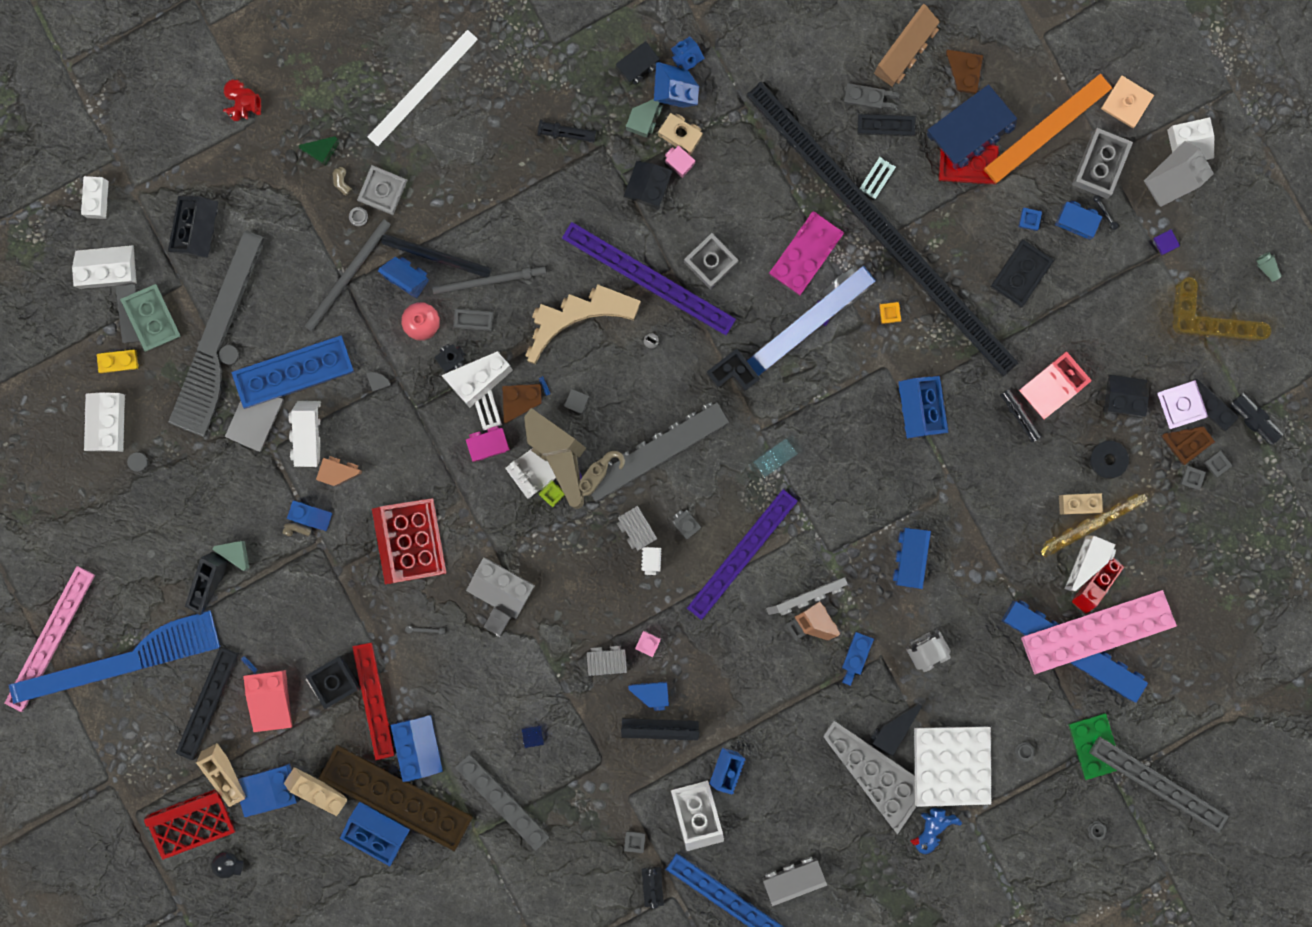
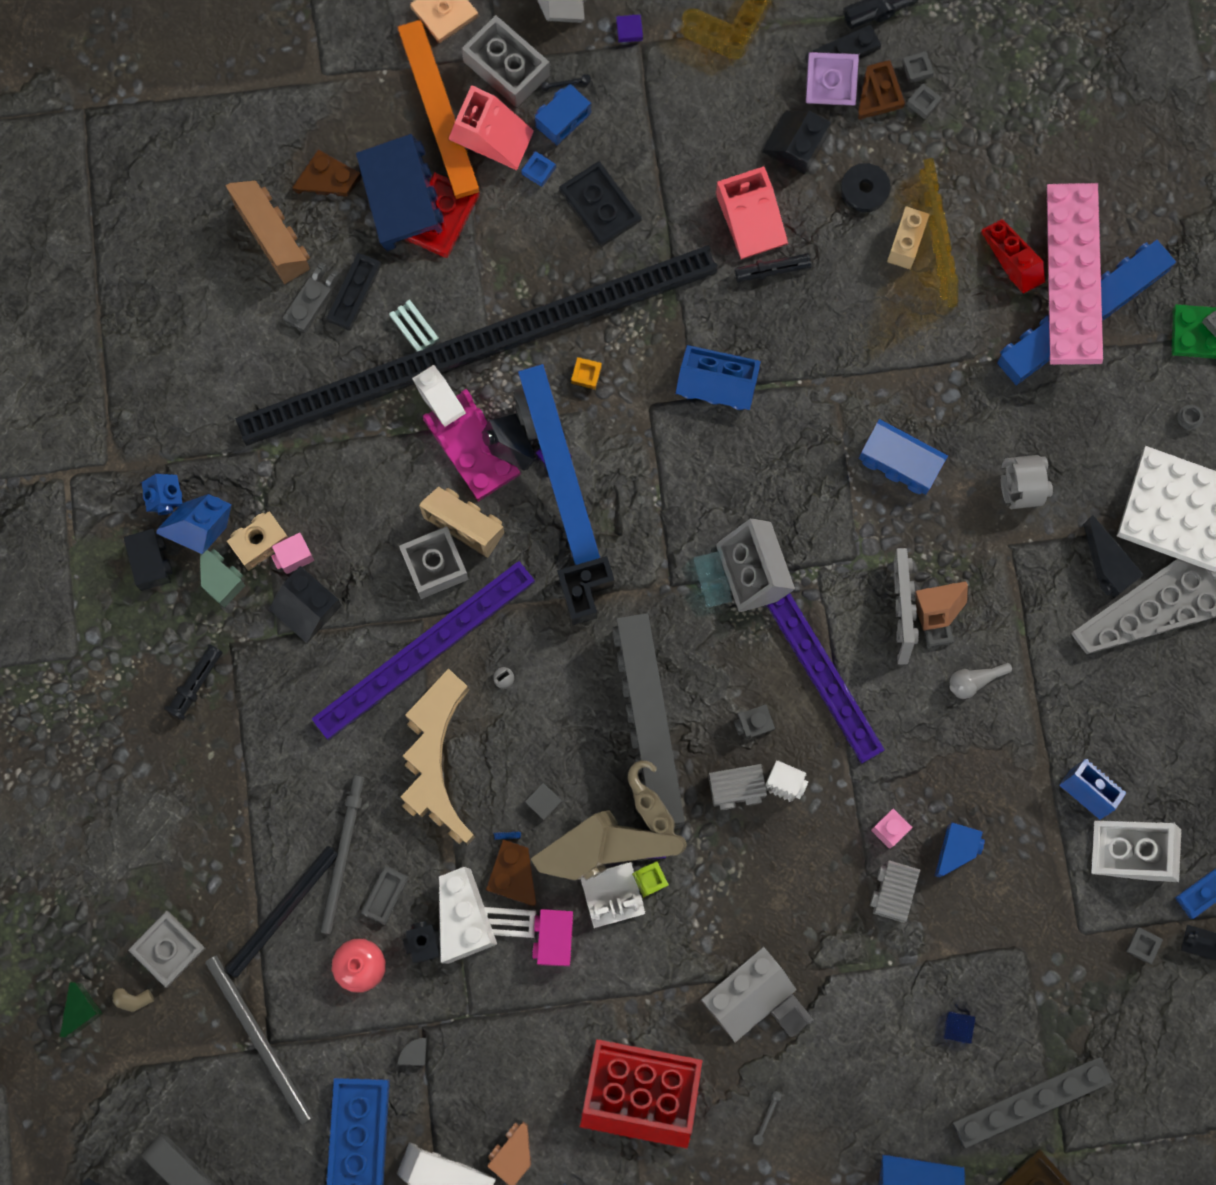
camera: 70 degrees left, 10 degrees down
(358, 216) = (188, 994): light grey plate -> none
(405, 277) = (292, 962): blue slope -> none
(422, 88) = (58, 846): white sticker -> none
(660, 729) = (1007, 855): black fence -> none
(749, 269) = (462, 520): none -> tan slope
(769, 659) = (966, 683): none -> light grey piece
(795, 483) = (754, 565): none -> light grey slope
(817, 278) = (508, 441): none -> black slope
(831, 216) = (438, 395): none -> white slope
(856, 656) = (1000, 575): blue plate -> none
(1044, 173) = (491, 129): none -> coral slope
(1092, 557) = (983, 252): white slope -> none

